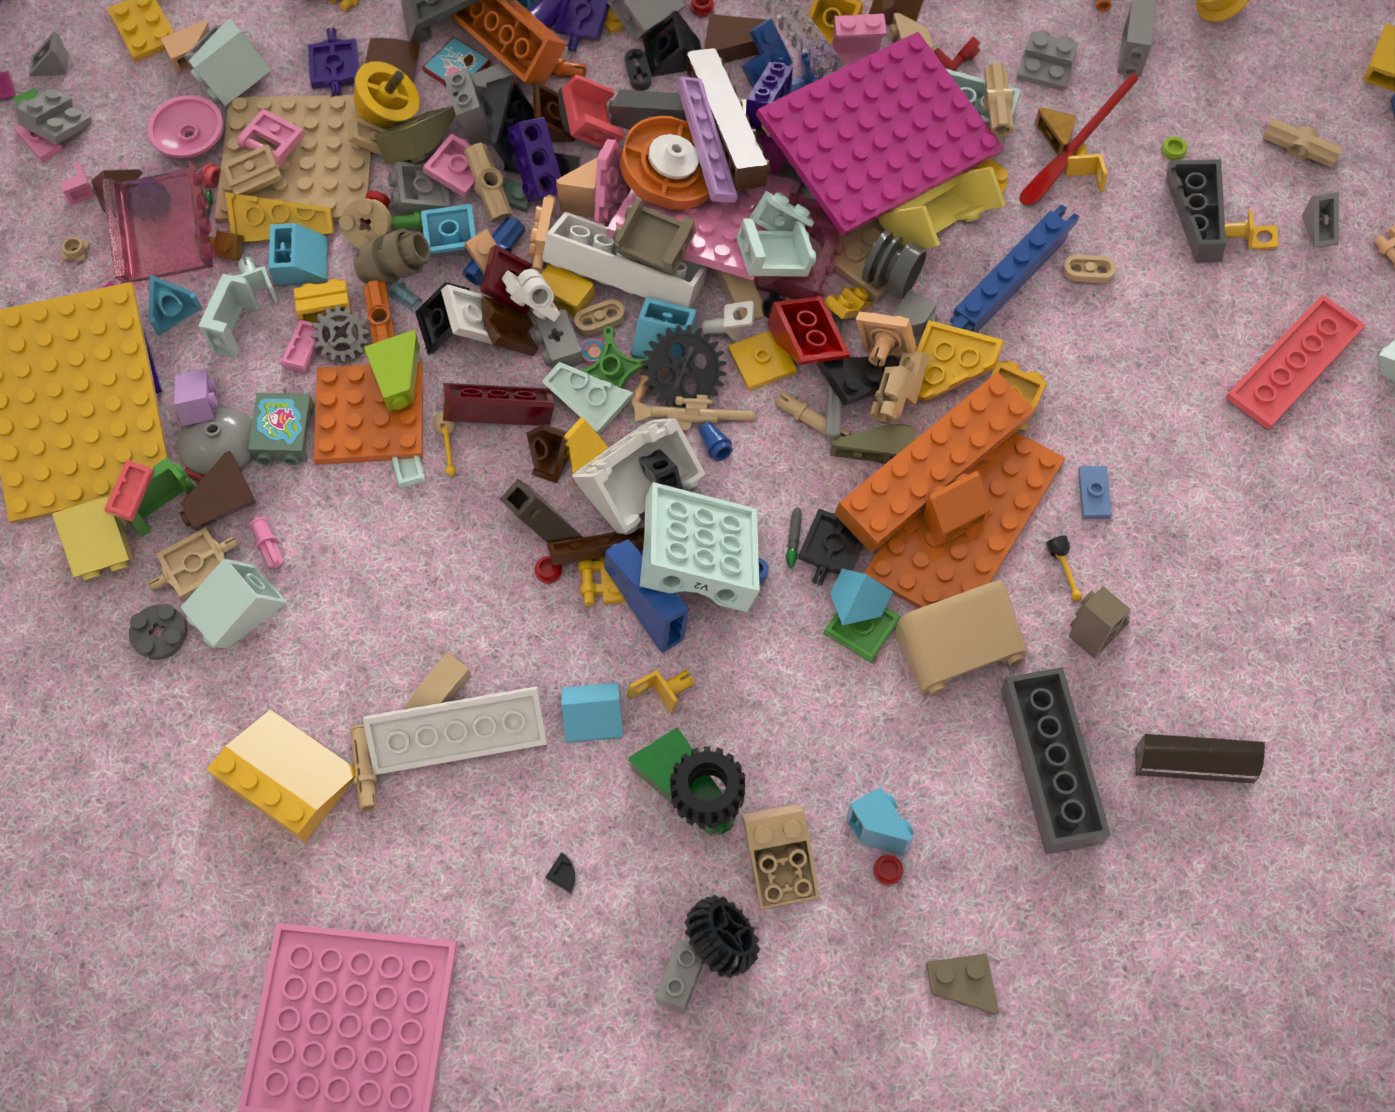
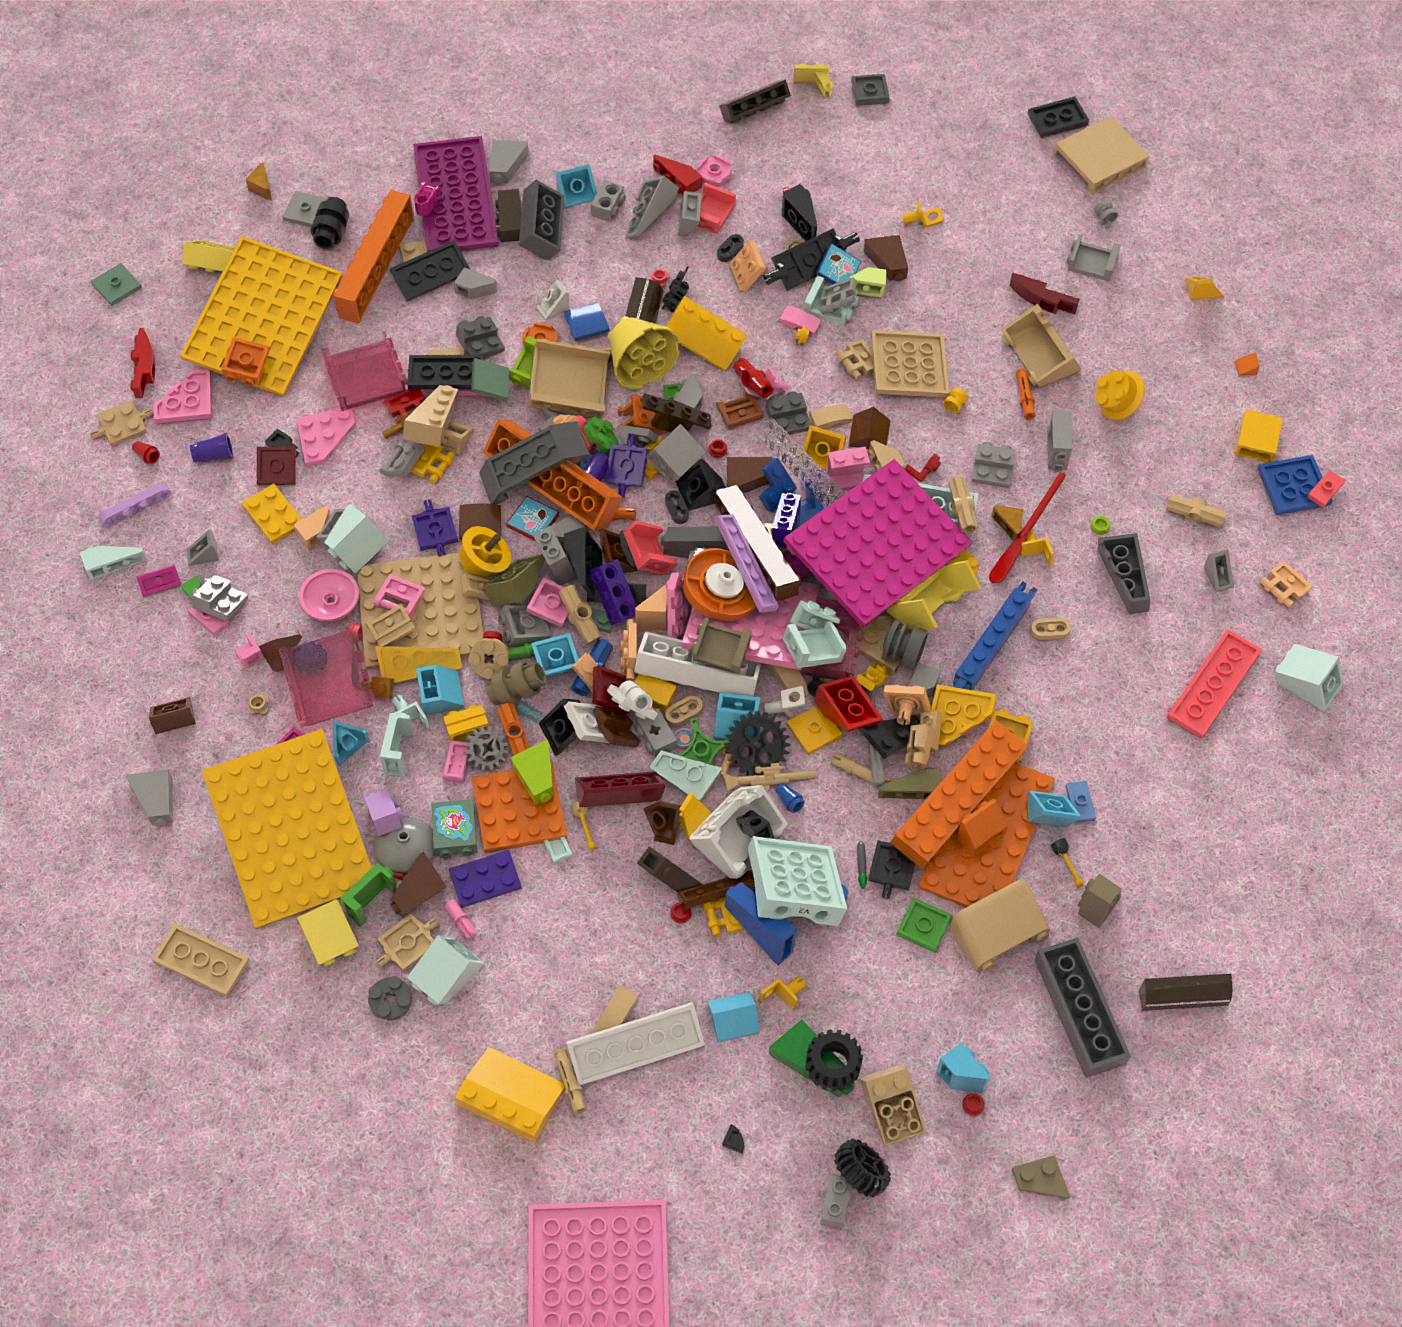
camera: 10 degrees left, 5 degrees down
(129, 490) = (356, 892): coral plate -> none
(308, 496) = (485, 878): none -> dark purple plate
(859, 597) = (919, 904): medium azure slope -> none
(1053, 496) = (1051, 809): none -> medium azure slope
(1249, 232) = (1166, 586): yellow bracket -> none

